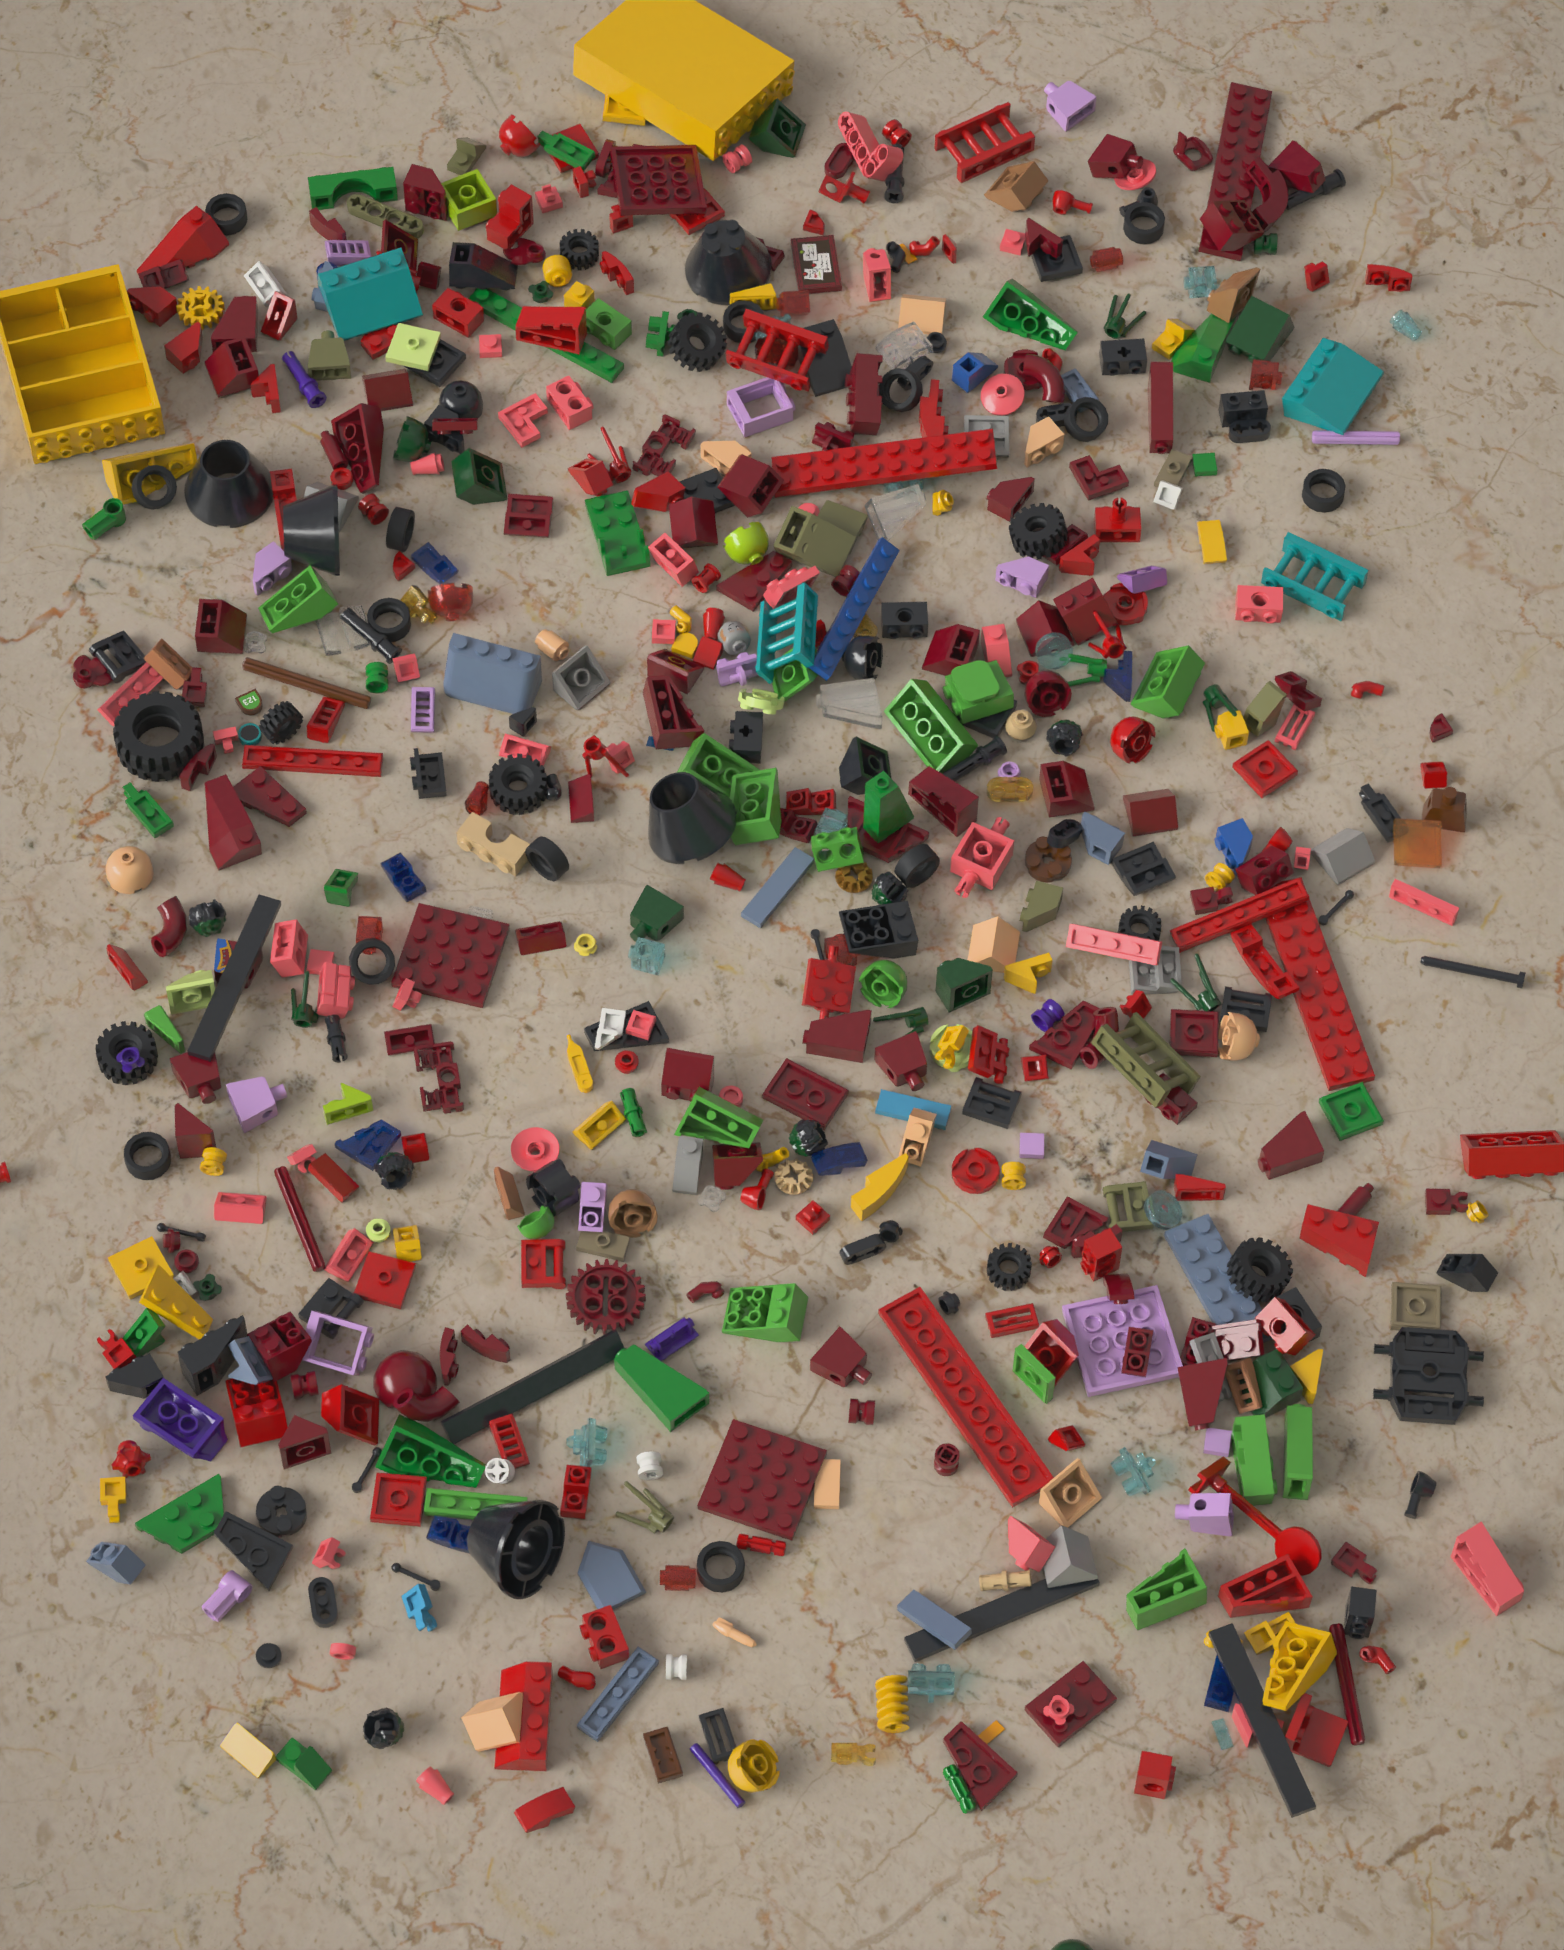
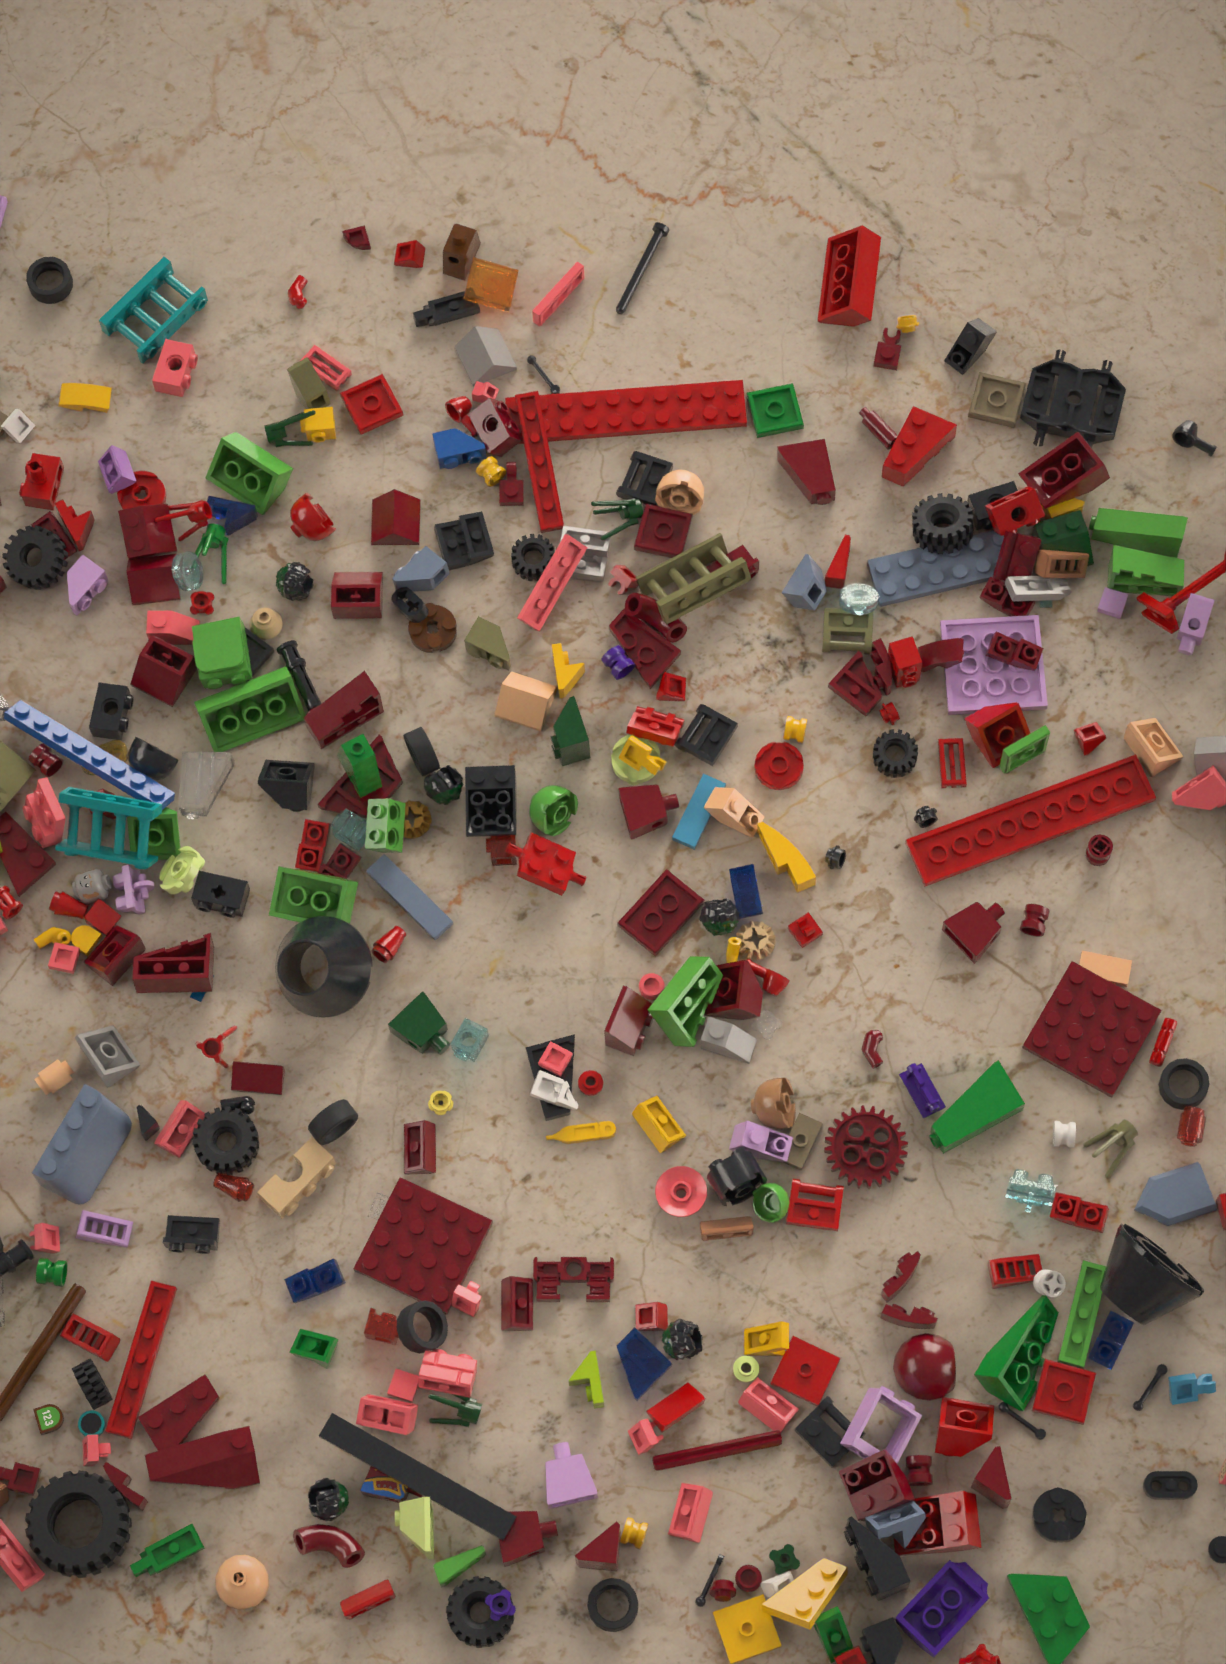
camera: 75 degrees left, 10 degrees up
(230, 1591) = (1145, 1578): lavender piece -> none
(254, 1547) = (1099, 1548): black wing -> none
(326, 1552) = (1116, 1473): coral tile -> none
(336, 1038) = (505, 1381): black pin -> none
(425, 1408) = (967, 1345): dark red cylinder -> none
(533, 1387) = (957, 1236): black tile -> none
(622, 754) = (213, 1027): coral tile -> none
(633, 1112) = (652, 1086): green pin -> none
(714, 763) = (252, 935): bright green slope -> none
(766, 1312) = (908, 994): bright green slope -> none
(815, 934) = (473, 870): black hinge -> none
(839, 1036) = (605, 864): dark red slope -> none
(862, 1249) = (853, 887): black beam -> none
(914, 1018) = (596, 790): dark green plant -> none
(982, 856) = (421, 673): coral brick -> none
(1009, 767) = (321, 639): lavender plate -> none
(1009, 789) = (342, 649): clear yellow plate -> none
(1031, 1145) = (760, 707): lavender tile -> none
(1047, 693) = (234, 588): dark red cylinder -> none
(1127, 1463) = (1148, 681): clear light blue hips -> none
(1202, 1391) = (1067, 599): dark red slope -> none
(1261, 963) = (600, 453): red slope -> none
(1296, 691) = (280, 358): dark red slope -> none
(1340, 1369) = (1065, 472): none -> dark red slope

